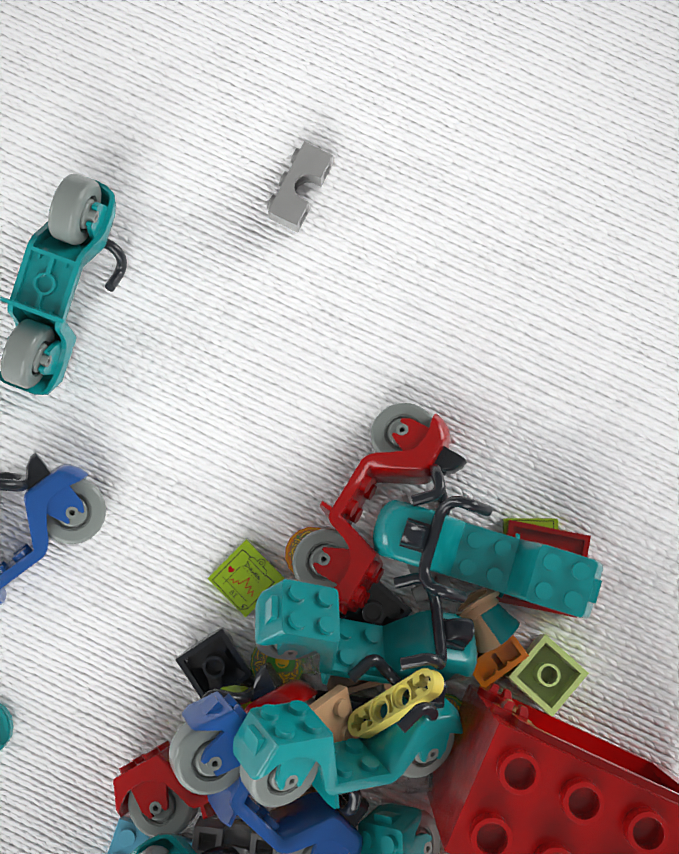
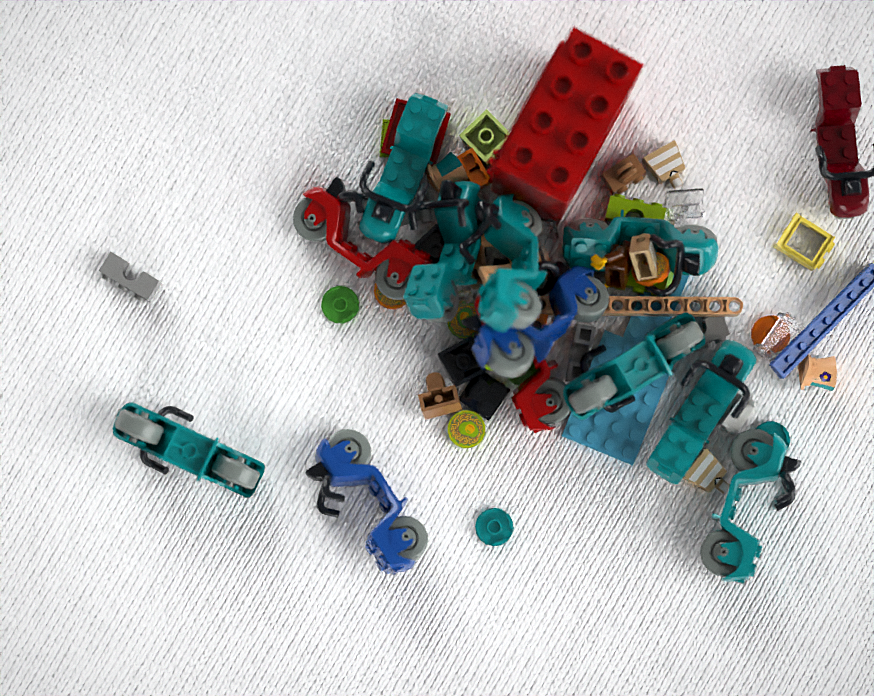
camera: 90 degrees left, 0 degrees up
(121, 676) = (466, 429): none -> tile
(158, 634) = (439, 398): none -> medium nougat brick
(167, 698) = (484, 395): none -> black slope
(244, 577) = (405, 337): lime tile -> none
(286, 480) = (340, 304): none -> bright green tile
(393, 699) = (486, 235): light yellow beam -> none

